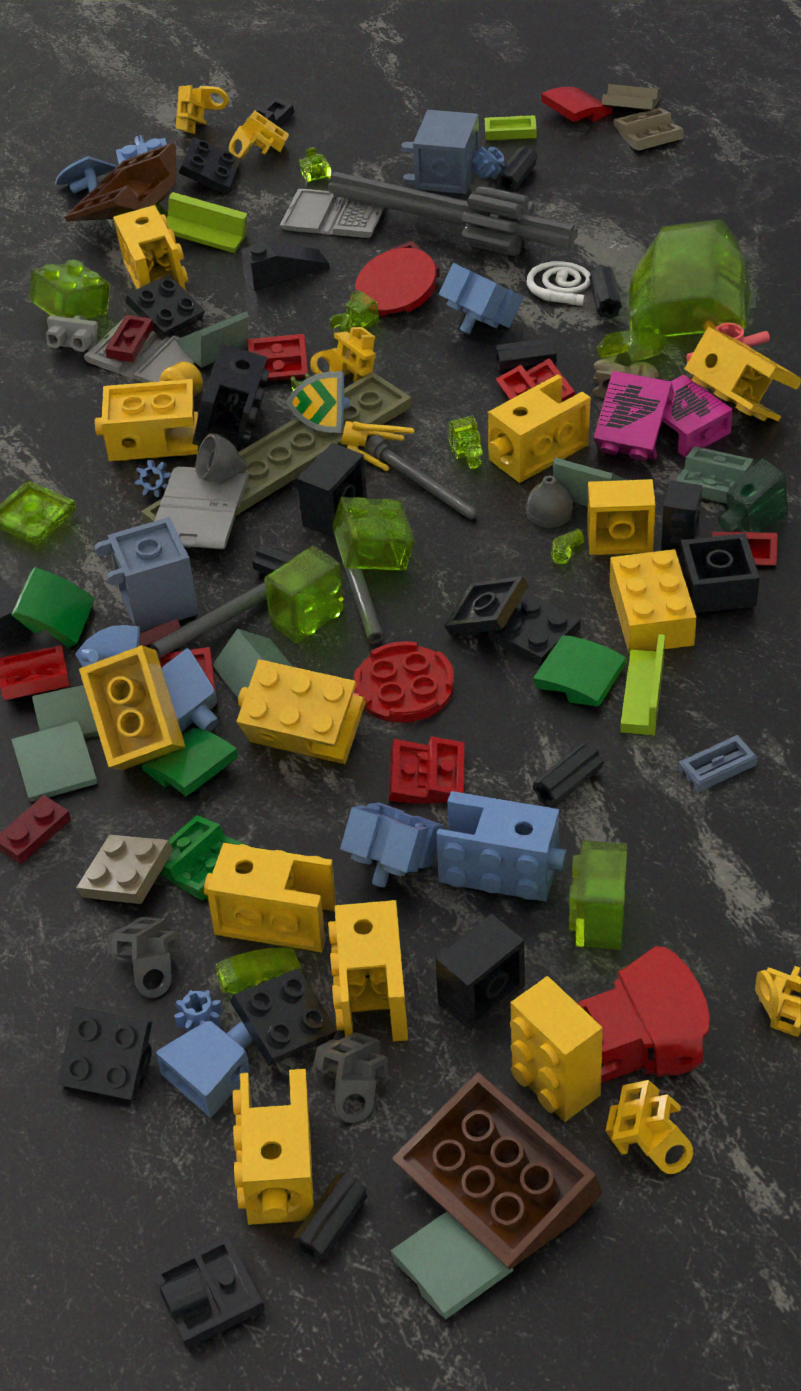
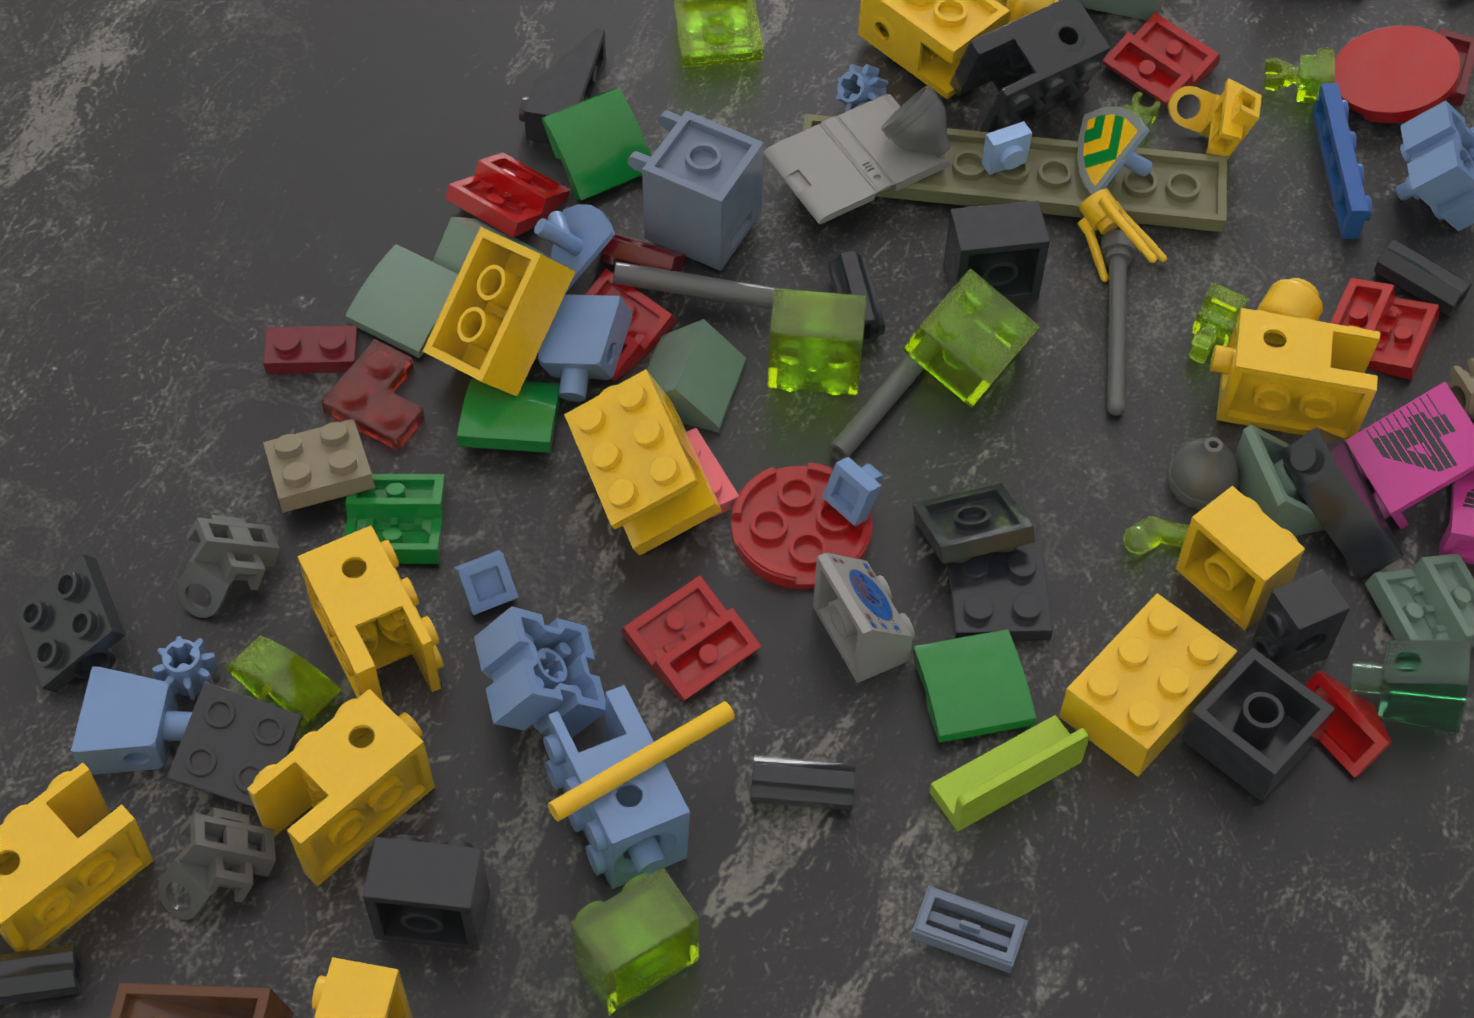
camera: 45 degrees right, 10 degrees up
(95, 821) = (369, 396): none -> clear red plate
(272, 442) = (1006, 148): none -> light blue plate
(294, 834) = (486, 582): none -> medium blue plate
(416, 638) = (853, 489): none -> medium blue tile
(423, 335) = (1340, 162): none -> blue plate
(486, 401) = (1293, 298): none -> yellow head
(494, 688) = (861, 616): none -> light grey slope
(510, 809) = (640, 761): none -> yellow bar
(626, 461) = (1341, 501): none -> black slope

